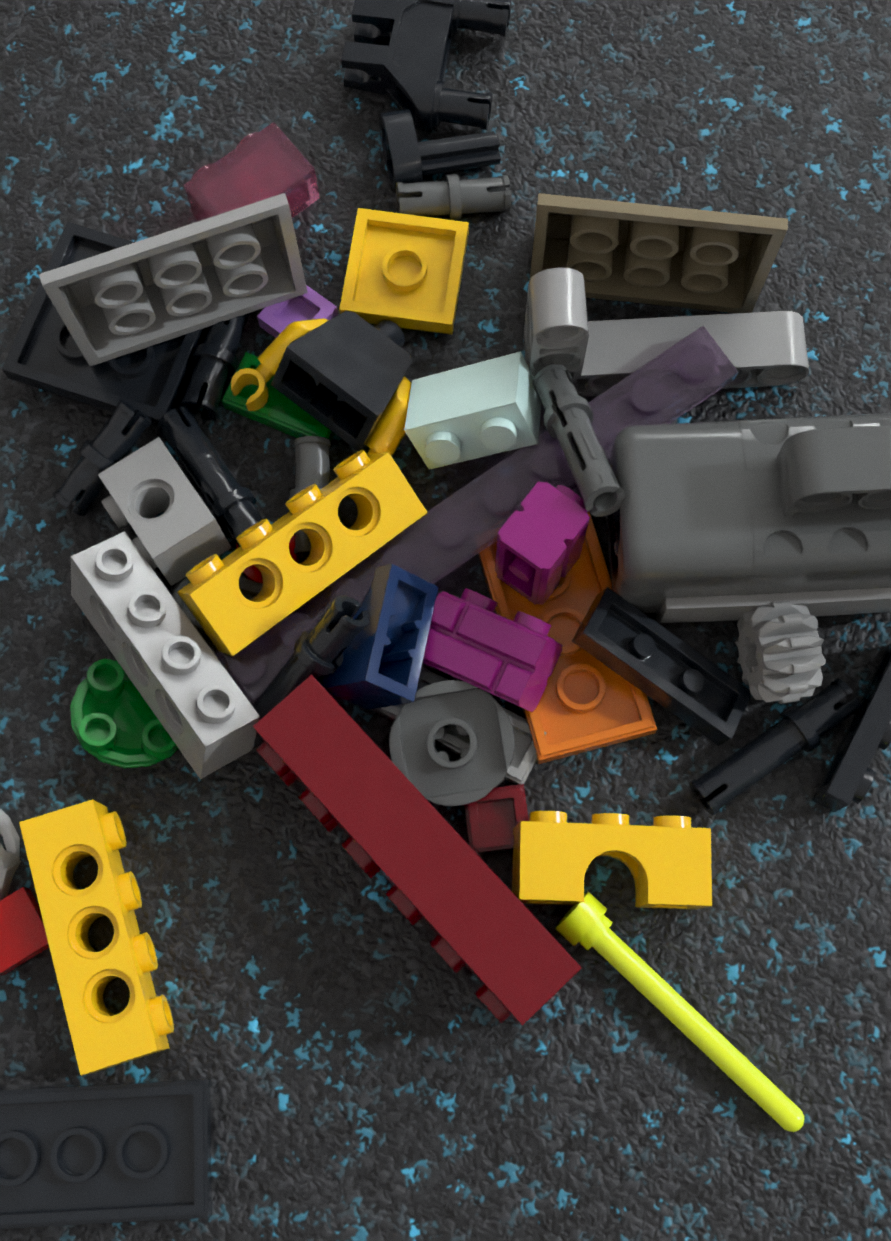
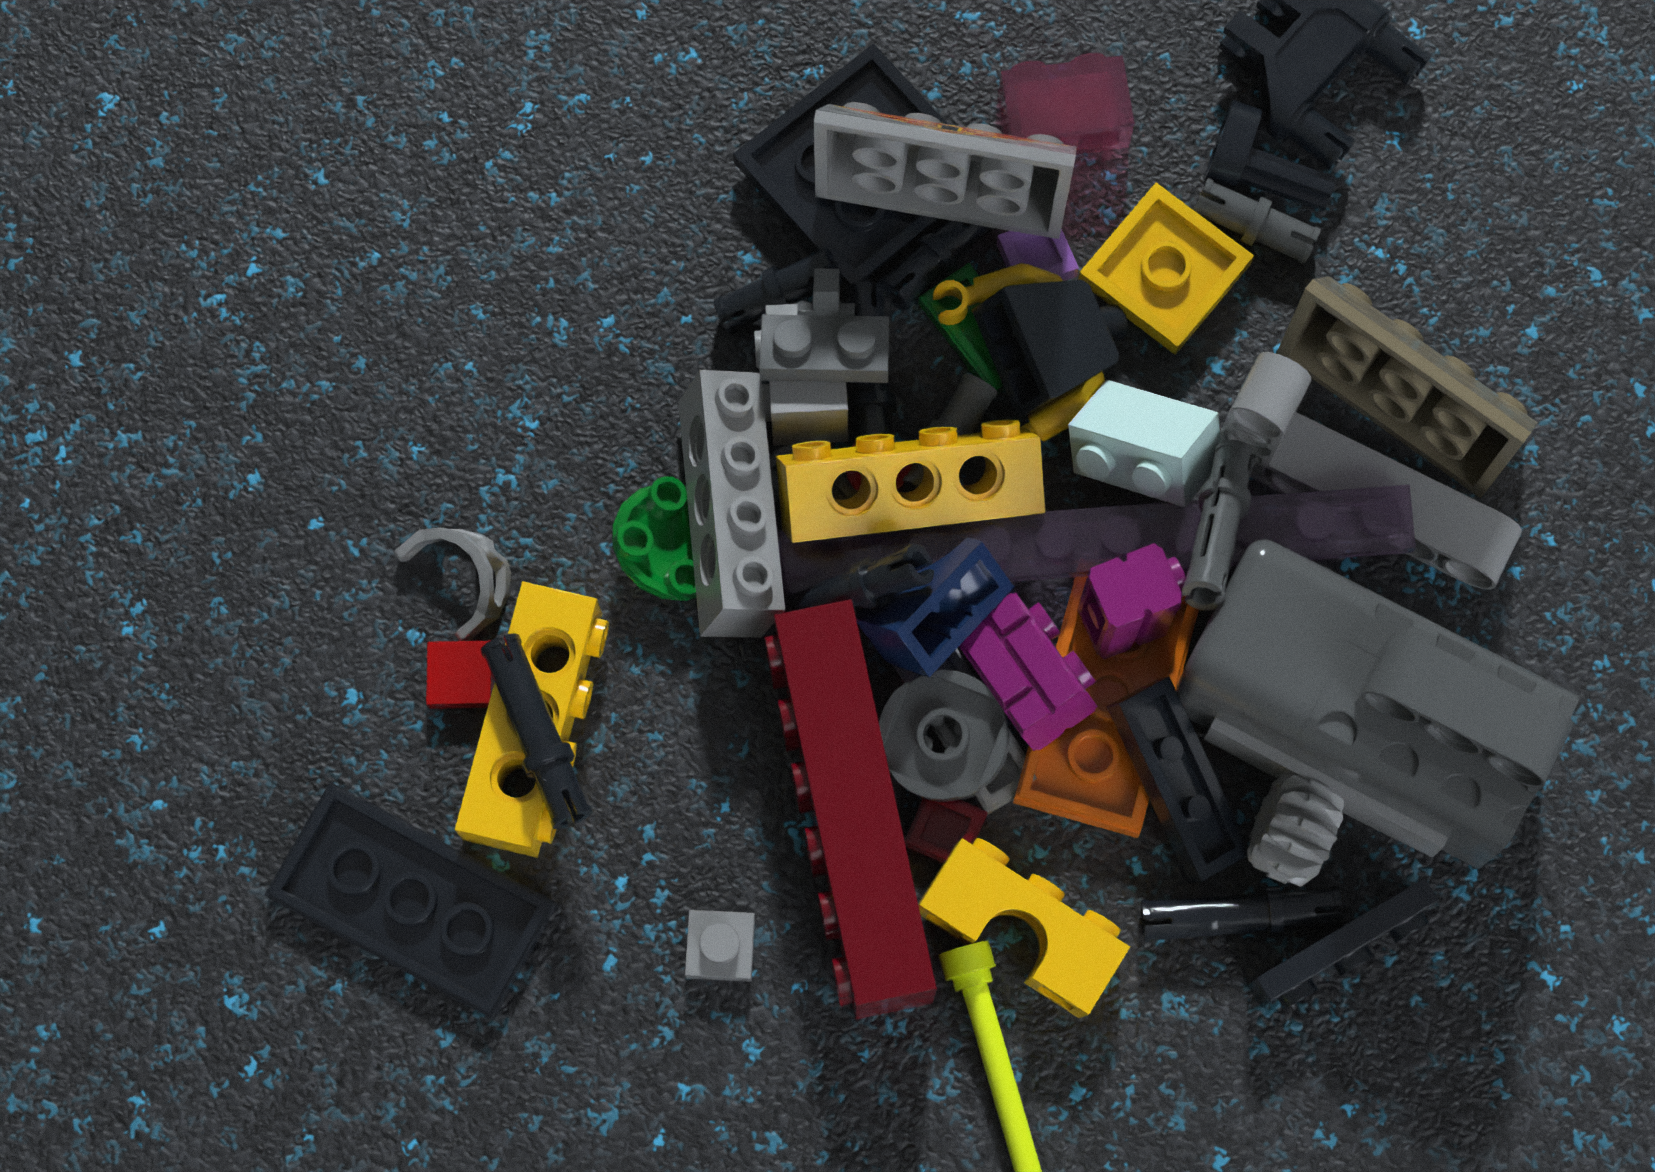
camera: 30 degrees right, 0 degrees up
(104, 948) = (545, 753): none -> black pin
(162, 473) = (825, 340): none -> dark grey hinge
(368, 1030) = (720, 945): none -> light grey plate

